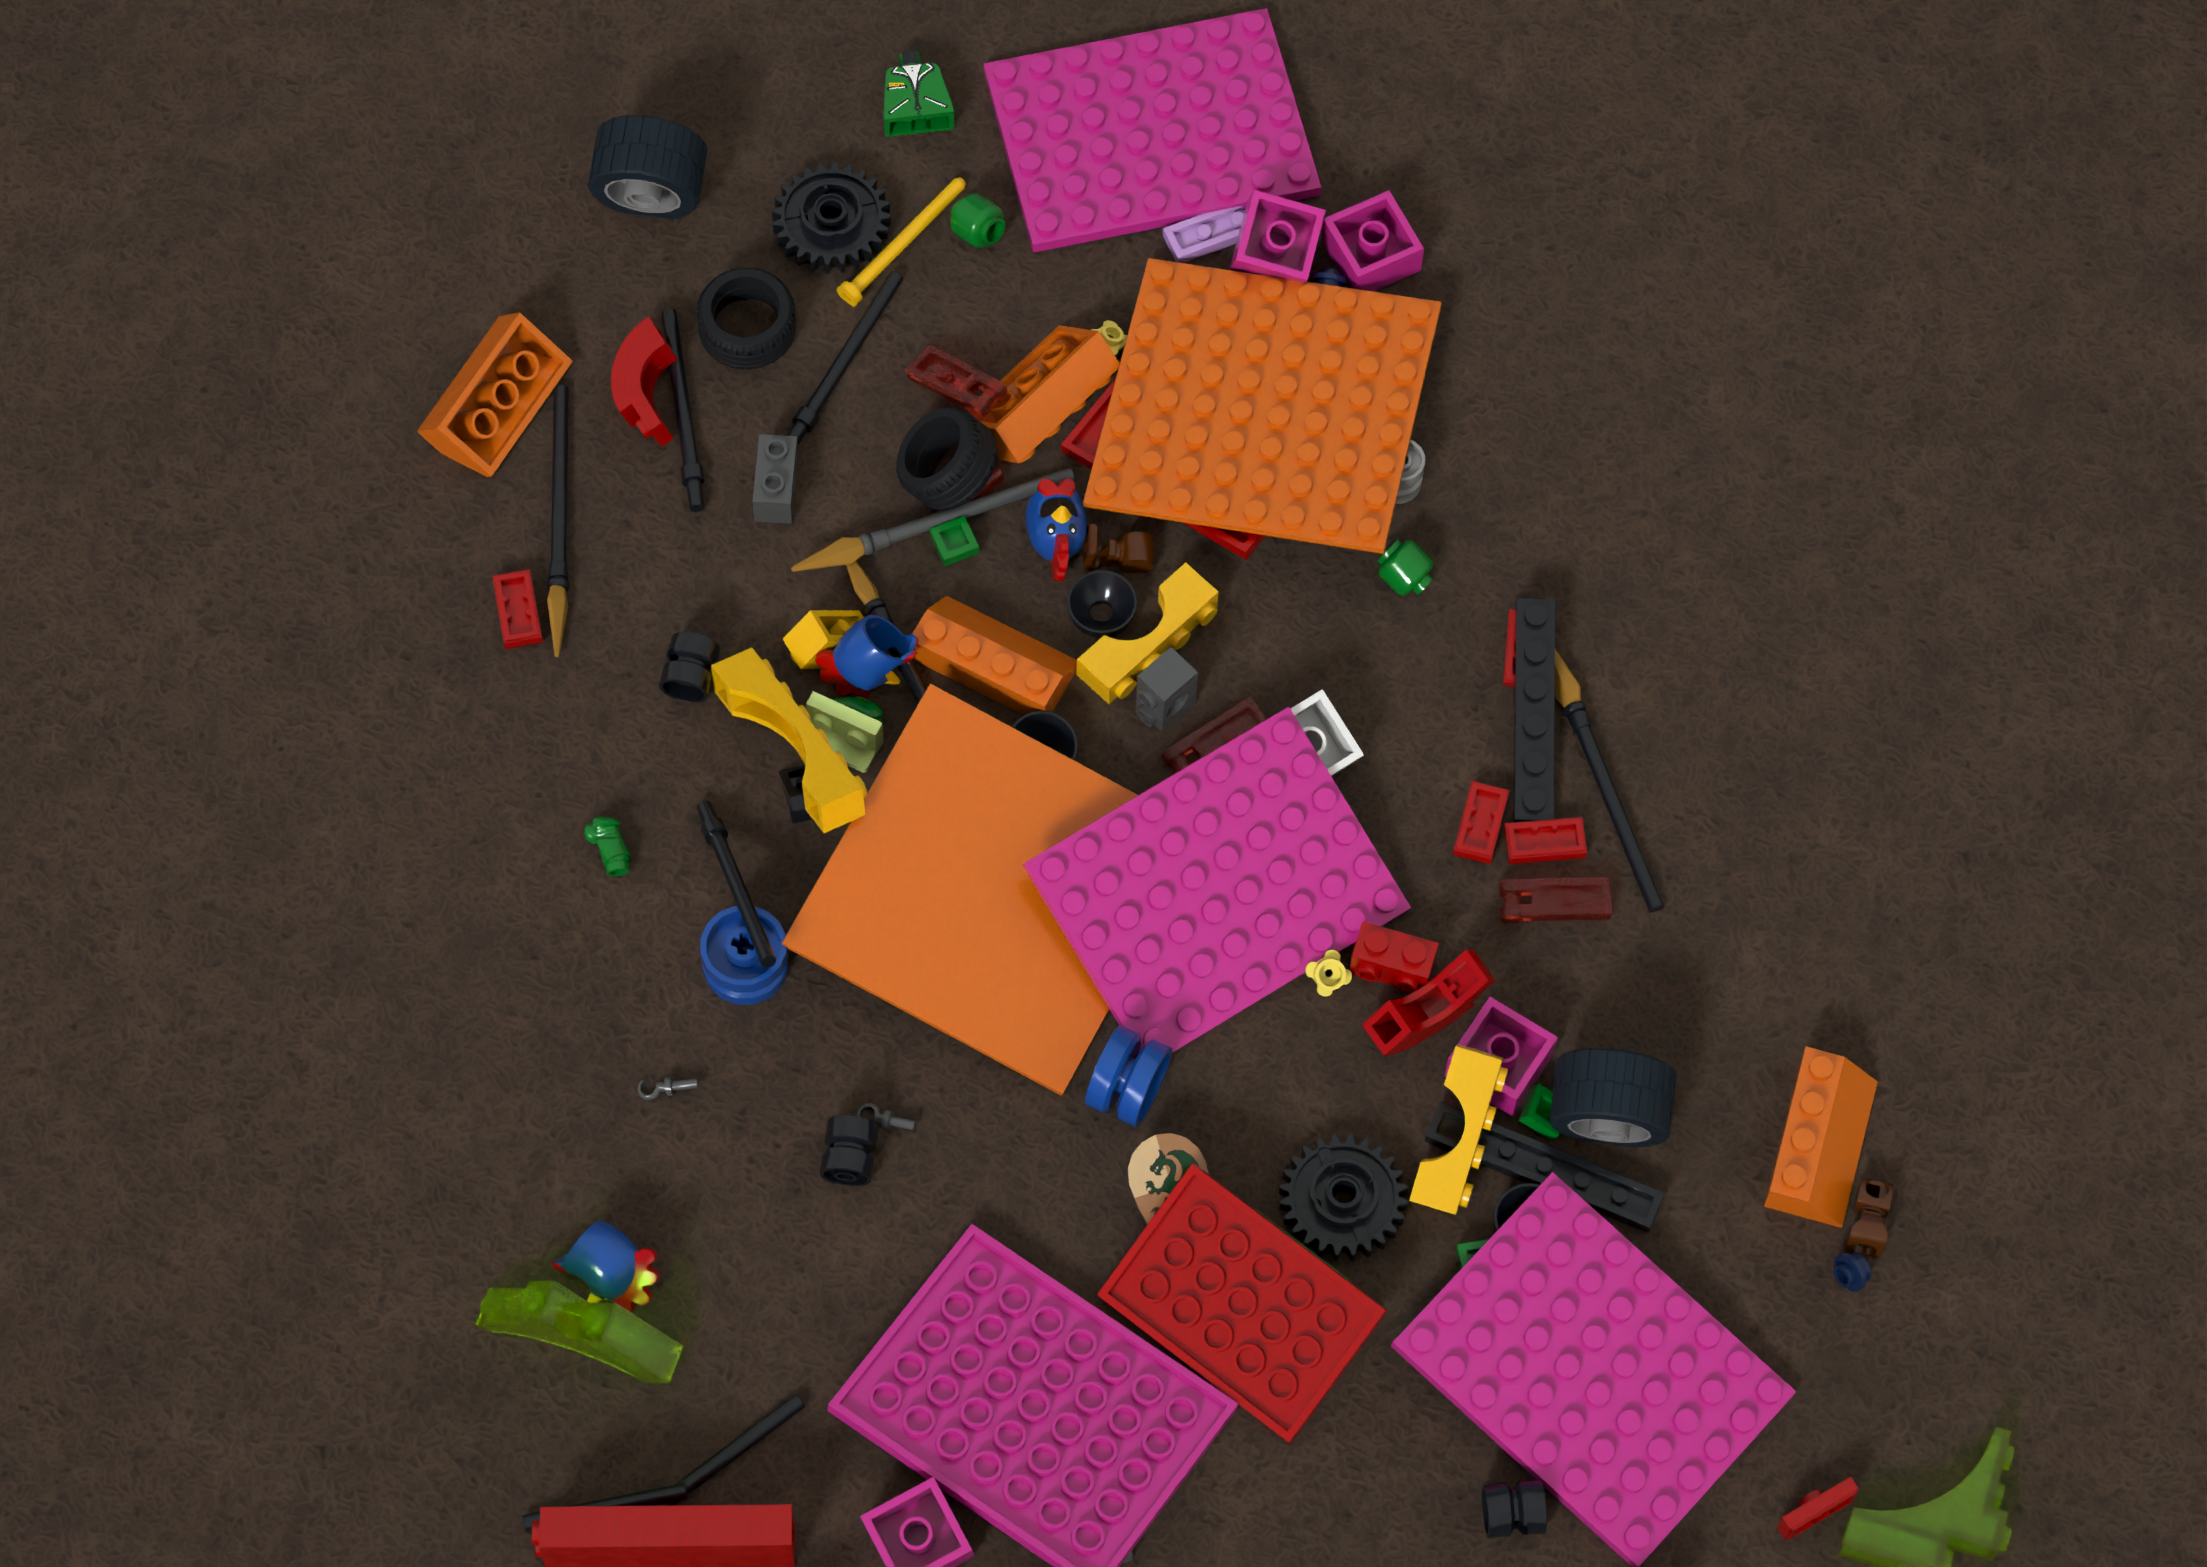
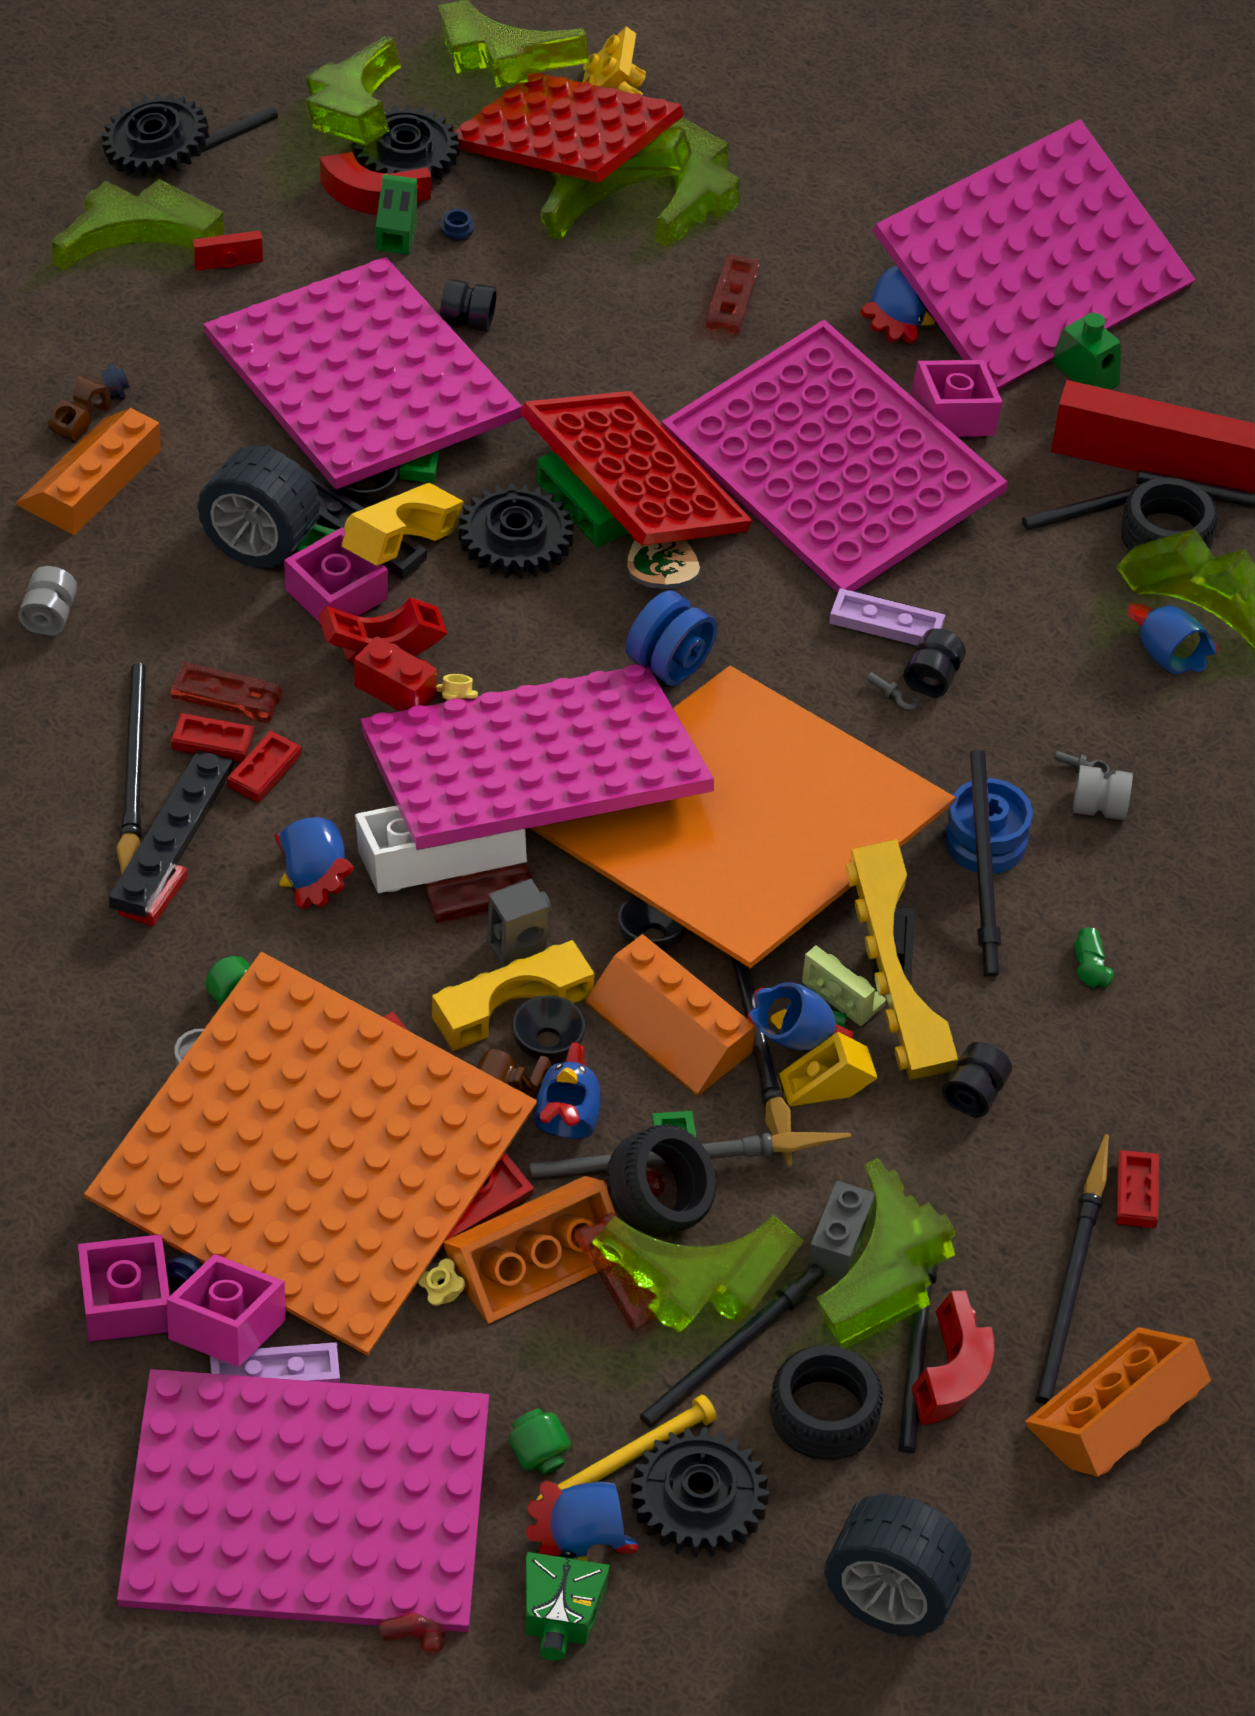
camera: 165 degrees left, 15 degrees down
(651, 1470) = (1169, 497): none -> black tyre
(652, 1035) = (1102, 792): none -> light grey wheel
(716, 471) = (891, 1272): none -> clear neon green arch
(895, 379) = (686, 1277): none -> clear neon green arch
(915, 1206) = (883, 617): none -> lavender plate
(917, 156) = (577, 1519): none -> blue piece
(1022, 49) = (415, 1625): none -> clear red arm
(1384, 709) = (313, 860): none -> blue piece
(1778, 938) = (47, 600): none -> light grey wheel

